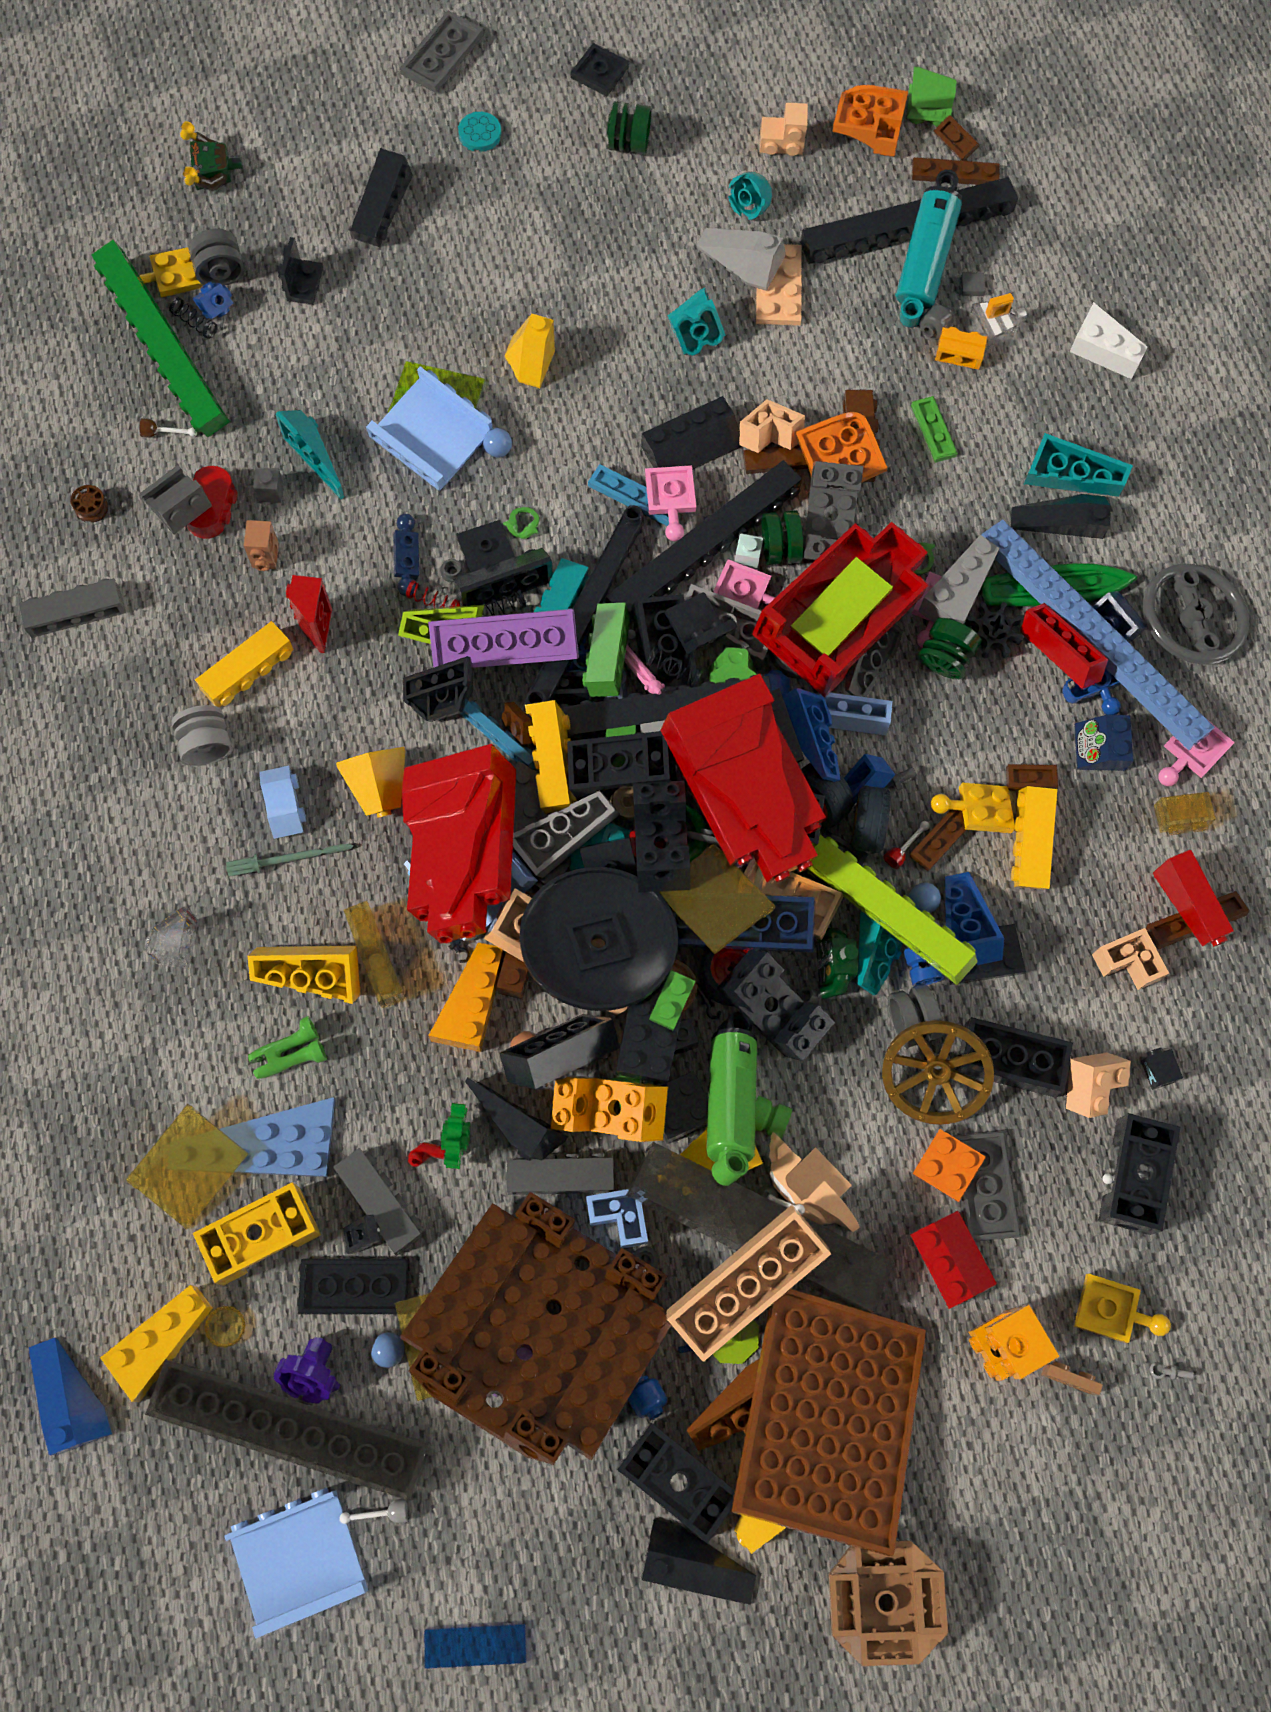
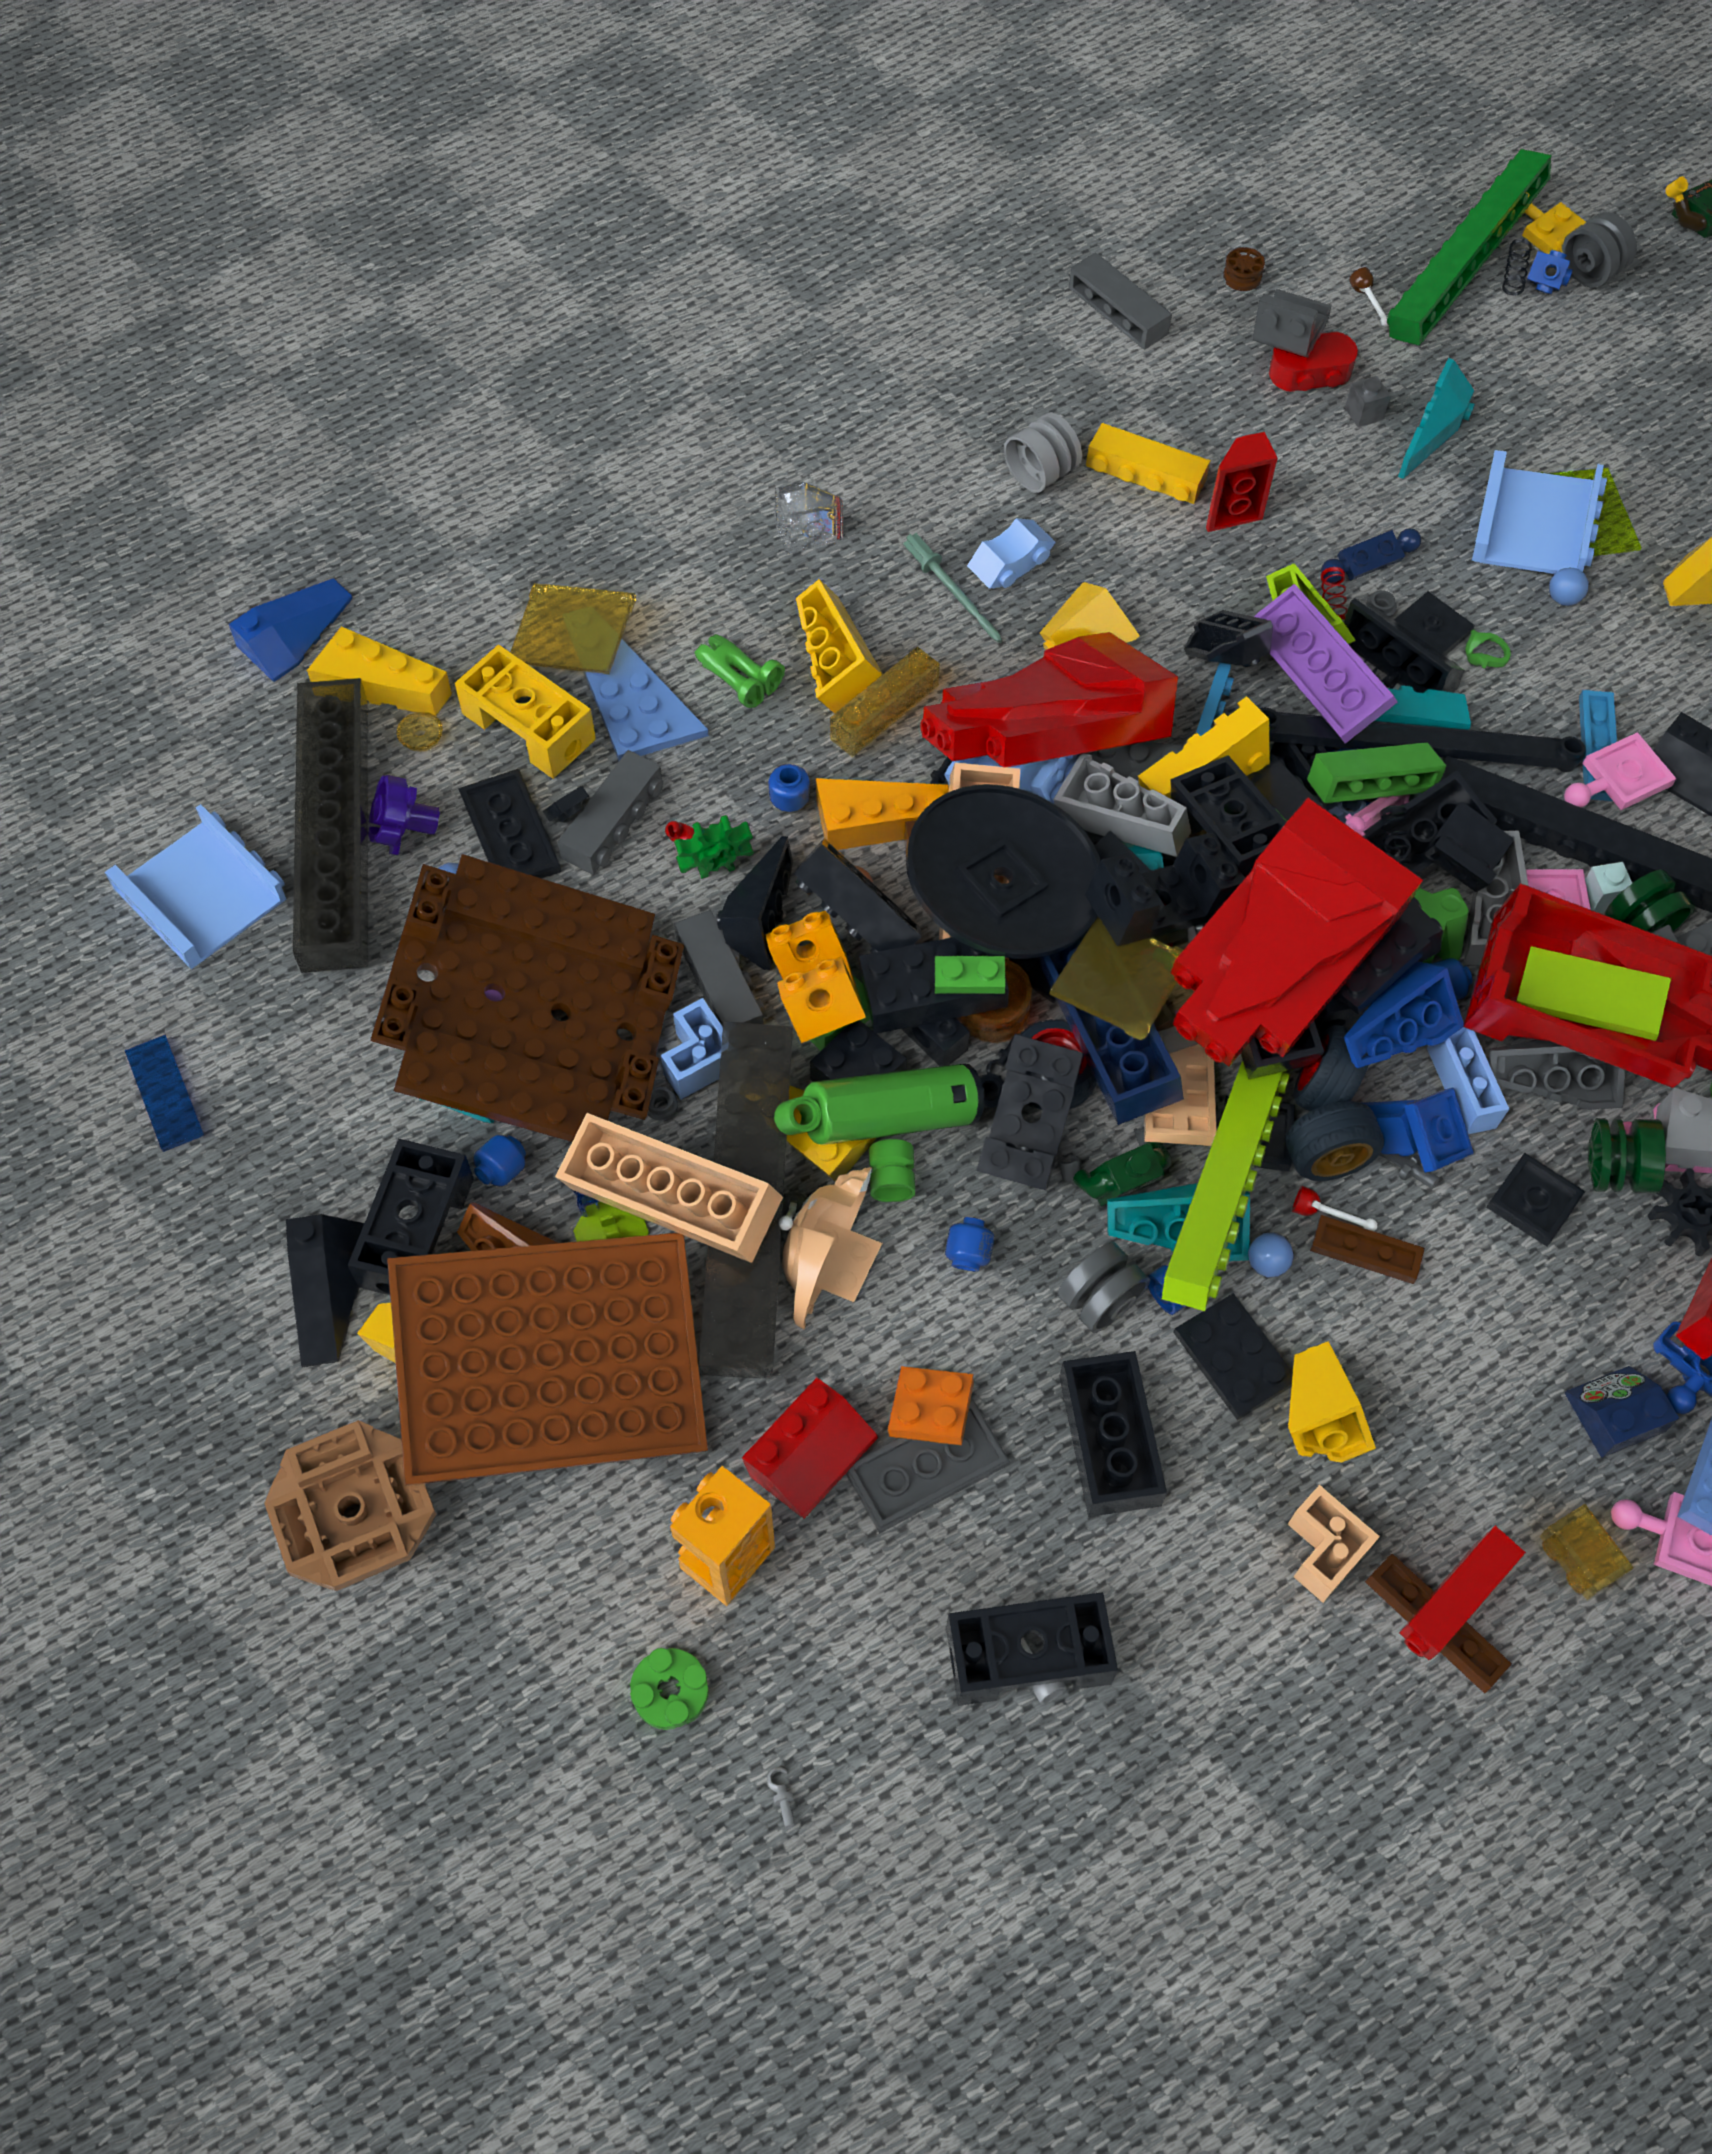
camera: 70 degrees right, 10 degrees down
(261, 545) = (1291, 417): nougat brick -> none
(299, 276) = (1634, 326): black bracket -> none
(396, 1512) = (282, 959): hinge -> none
(427, 1063) = (789, 787): none -> blue head
(844, 1089) = (969, 1245): none -> blue head
(885, 750) = (1438, 1129): none -> blue tile
(938, 1076) = (1043, 1336): pearl gold wheel -> none
(948, 717) = (1535, 1199): none -> black plate
(971, 918) = (1264, 1310): blue wedge -> none
(982, 807) = (1432, 1279): yellow plate -> none
(1026, 775) = (1515, 1332): reddish brown plate -> none
(1034, 837) = (1430, 1355): yellow wedge -> none
(1041, 915) = (1325, 1409): none -> yellow slope
(1083, 1382) = (719, 1640): medium nougat plate -> none
(1091, 1082) = (1130, 1538): light nougat brick -> none
(1094, 1420) = (661, 1667): none -> bright green plate
(1111, 1310) = (833, 1683): yellow plate -> none
(1161, 1068) = (1196, 1640): black brick -> none

